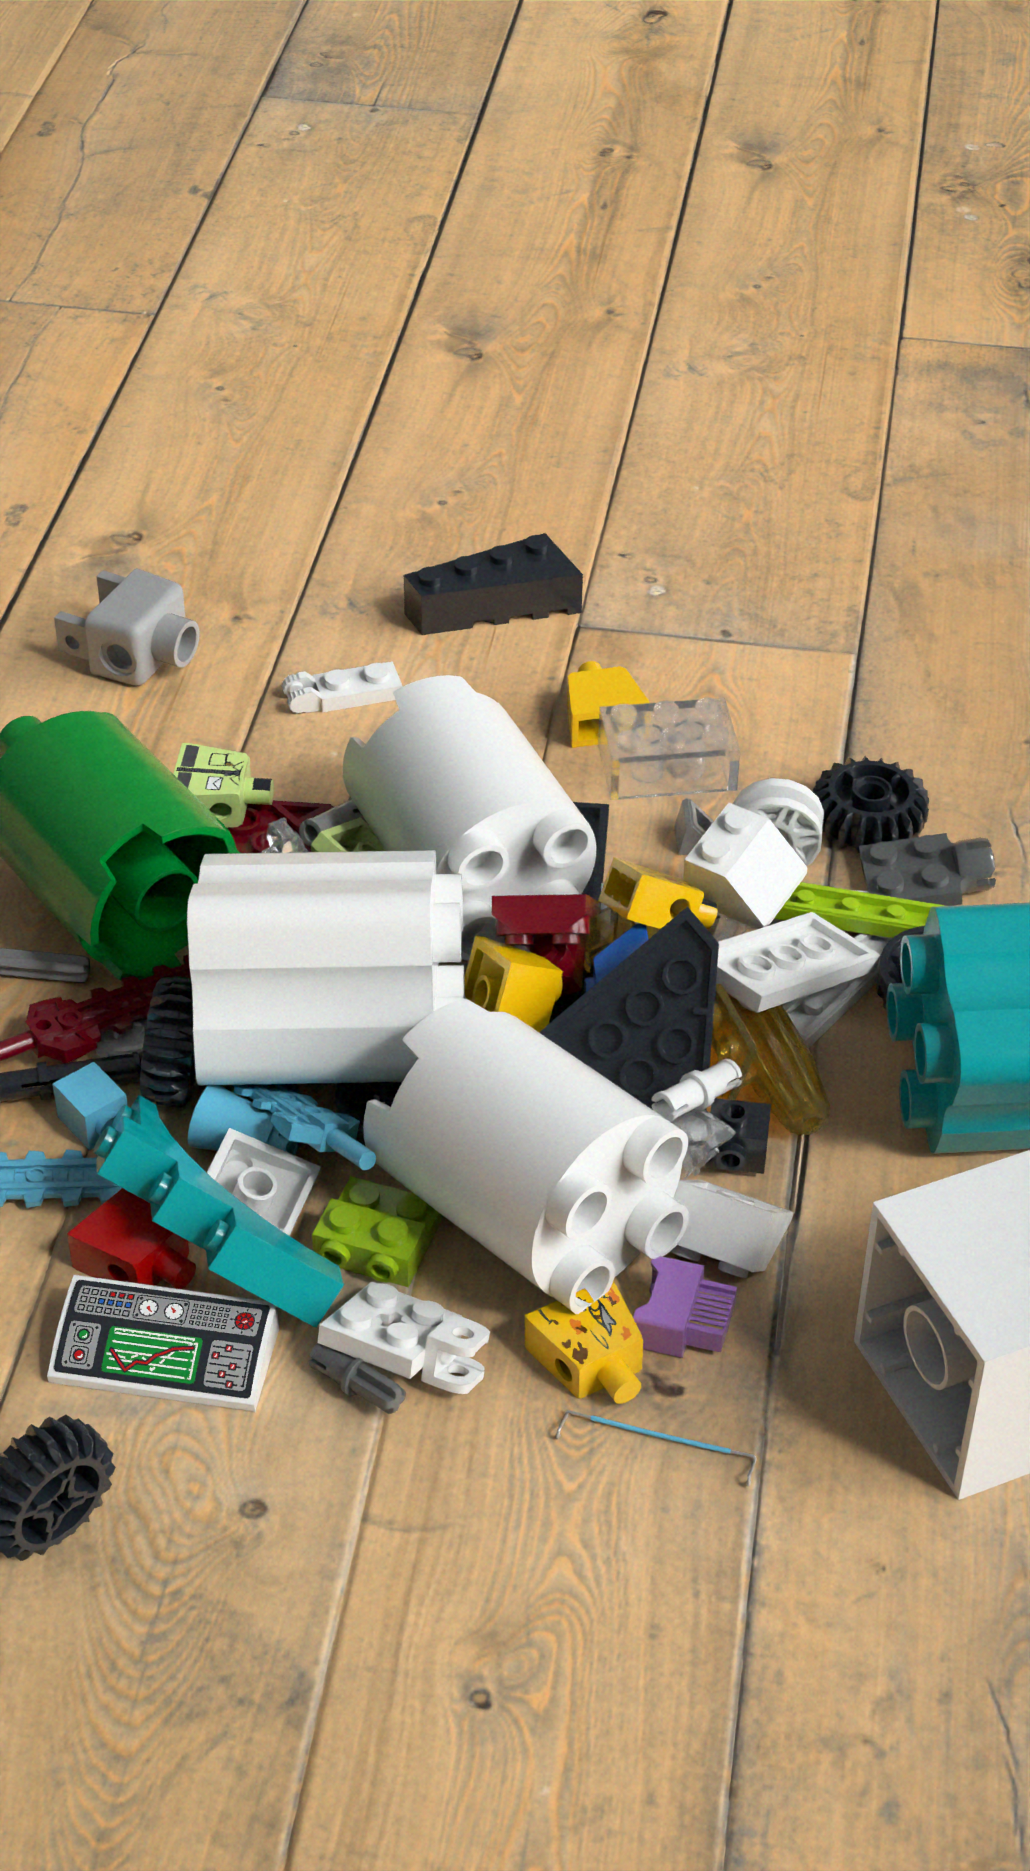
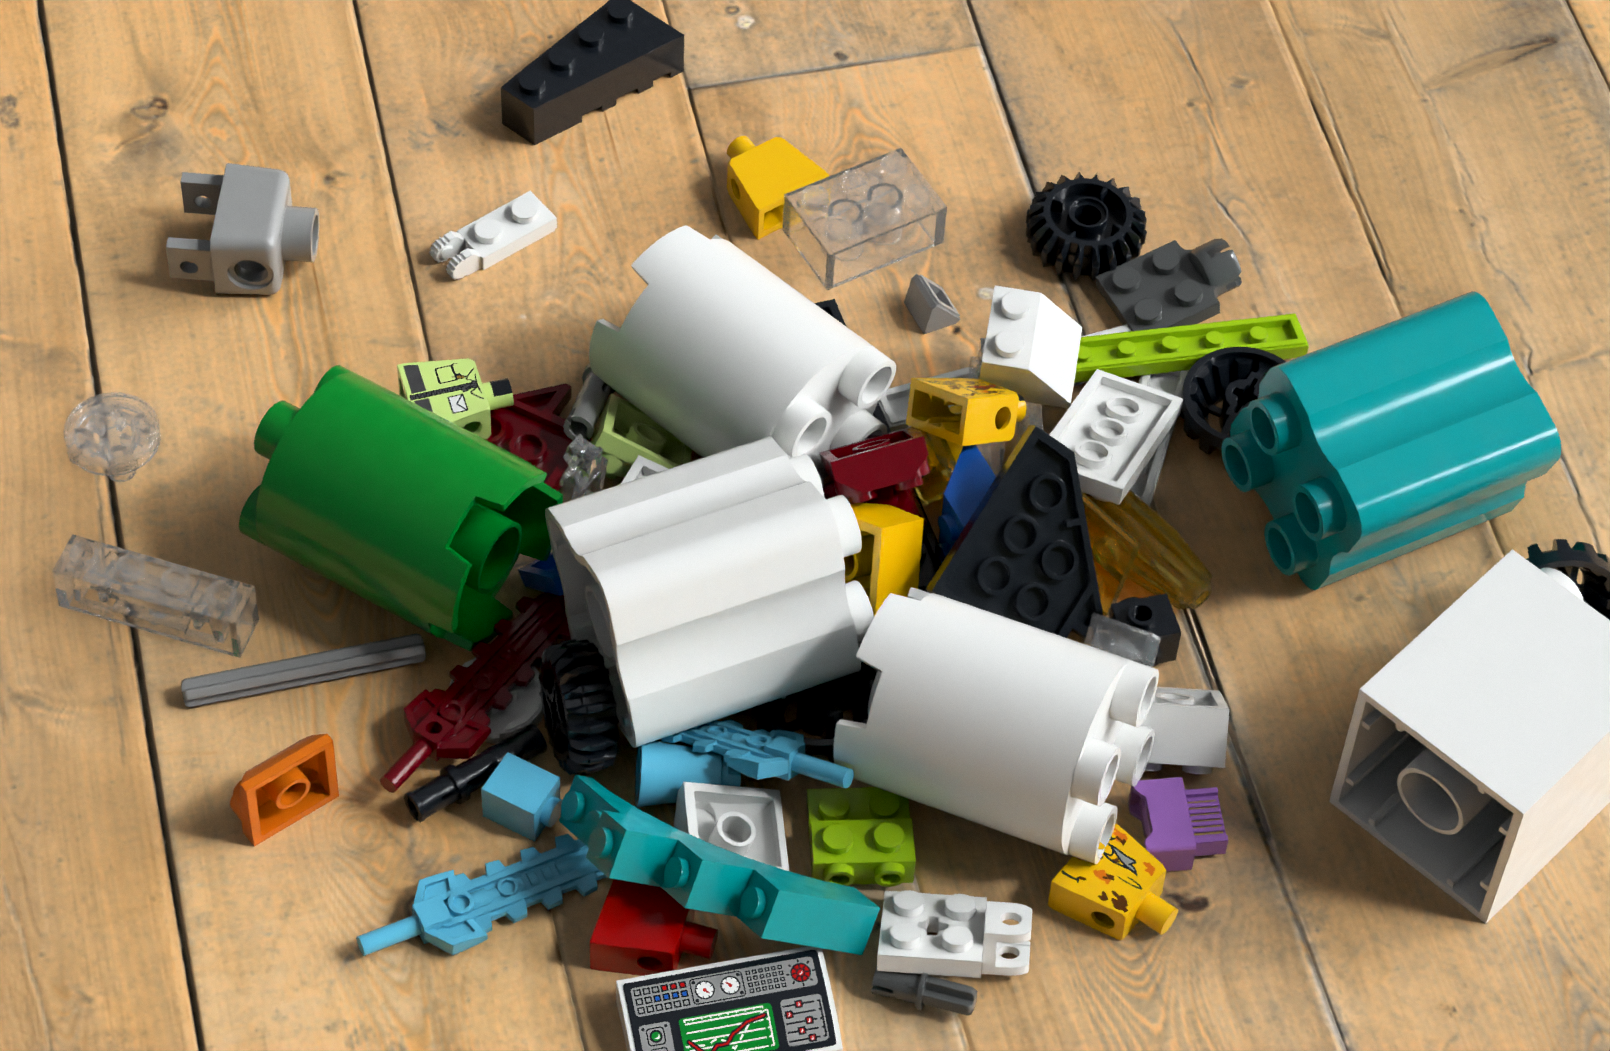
camera: 25 degrees left, 10 degrees up
(660, 1435) = (1211, 951): medium azure piece -> none
(697, 1090) = (1099, 603): white pin -> none
(792, 811) = (1021, 264): white wheel -> none

